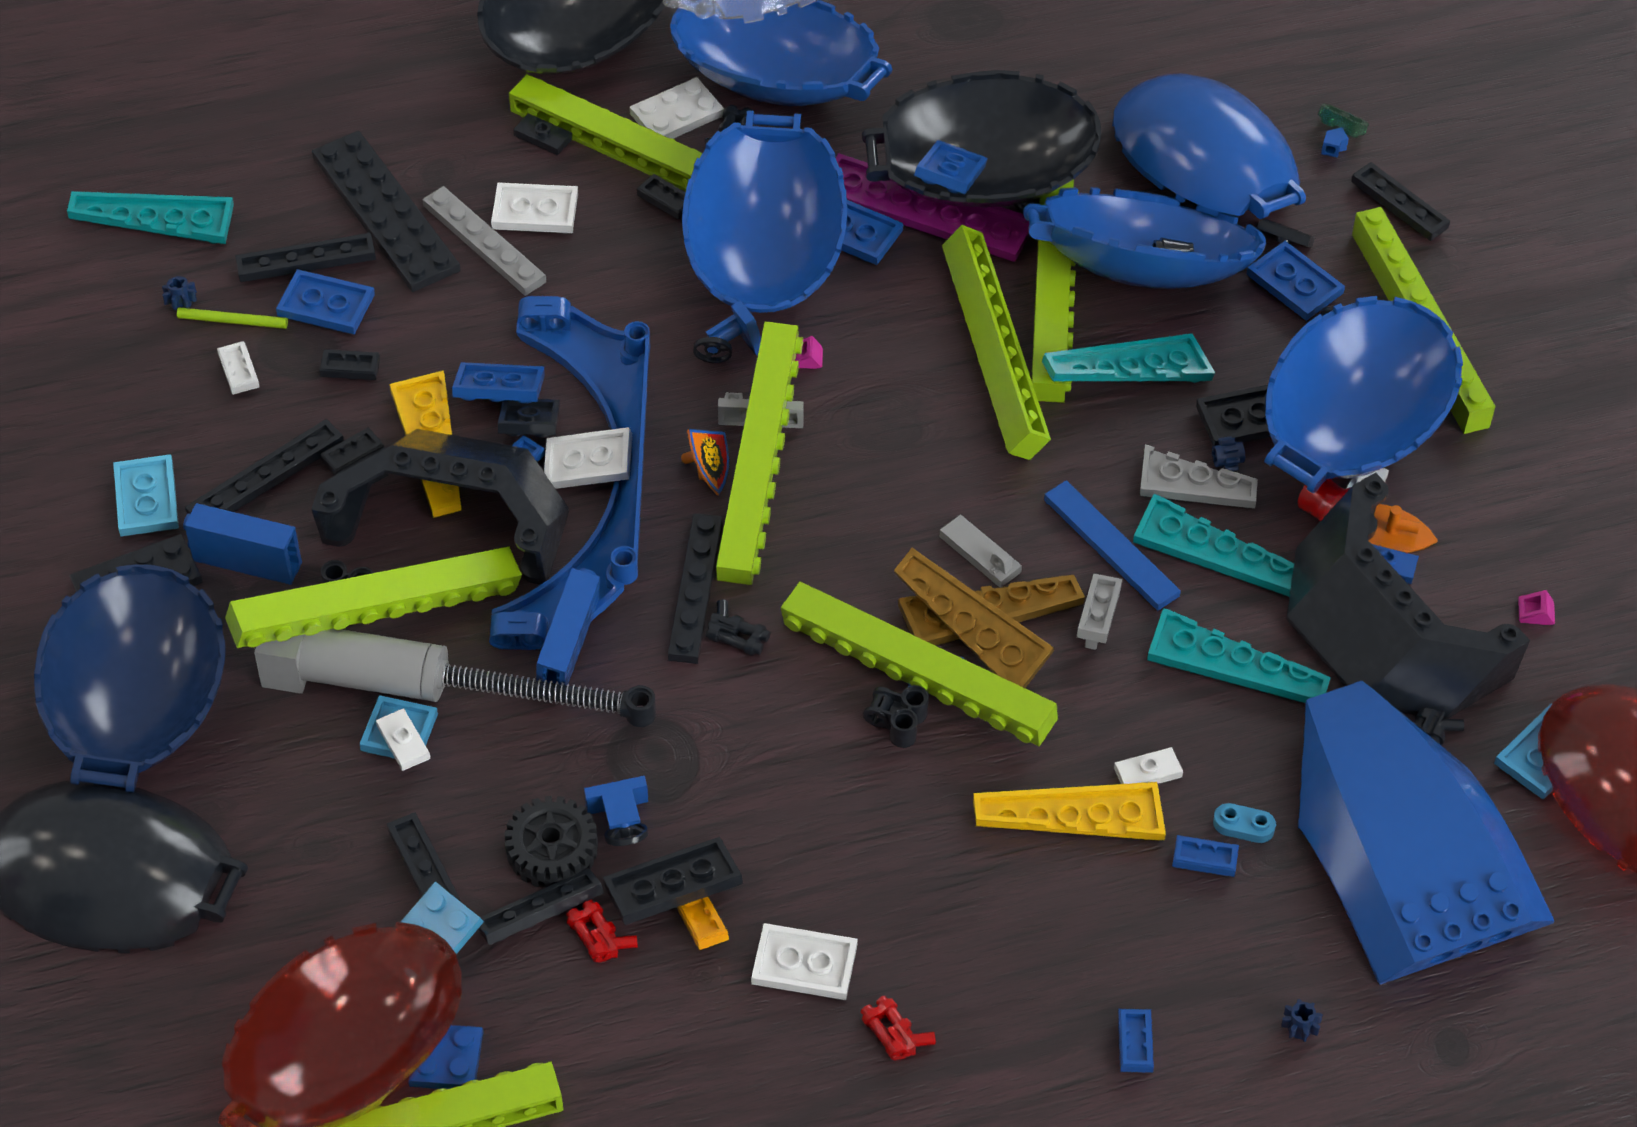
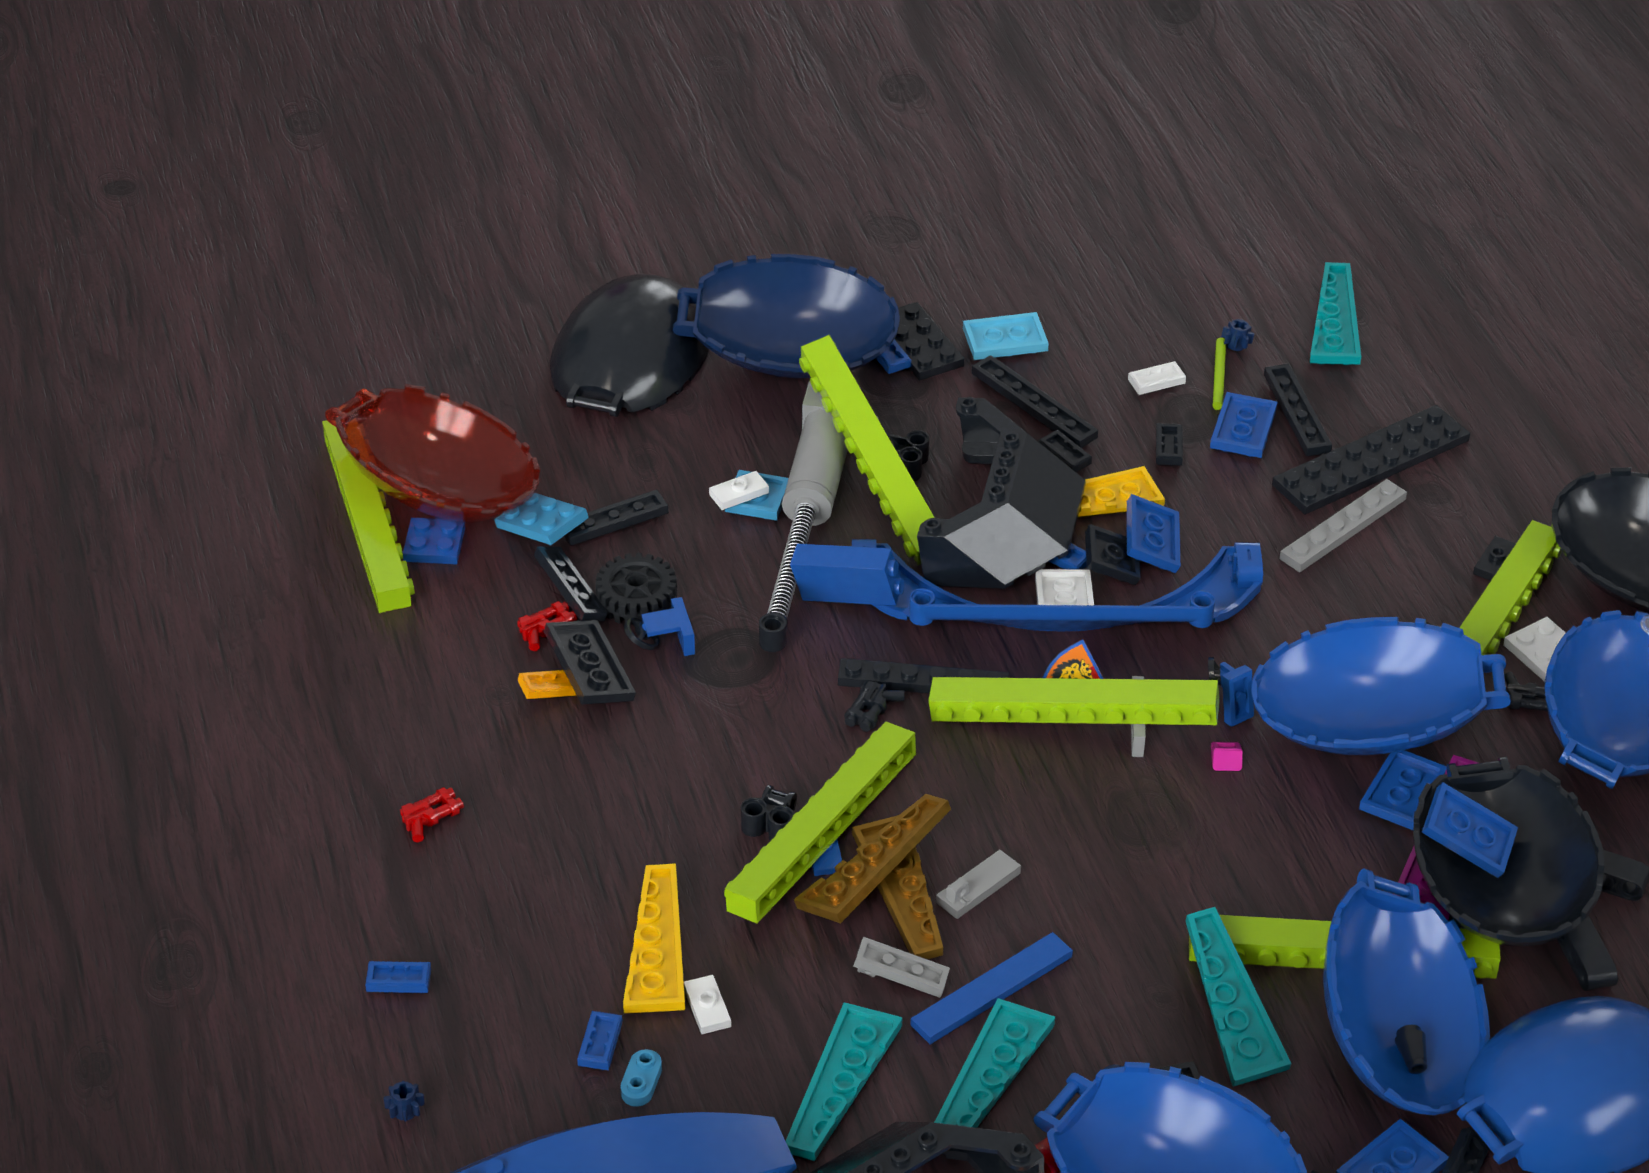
camera: 90 degrees right, 10 degrees down
(243, 543) = (943, 384): blue brick -> none
(534, 207) = (1389, 554): white plate -> none
(804, 961) = (502, 750): white plate -> none
(996, 343) = (1246, 888): lime brick -> none
(1194, 481) = (1083, 1045): light grey wing -> none

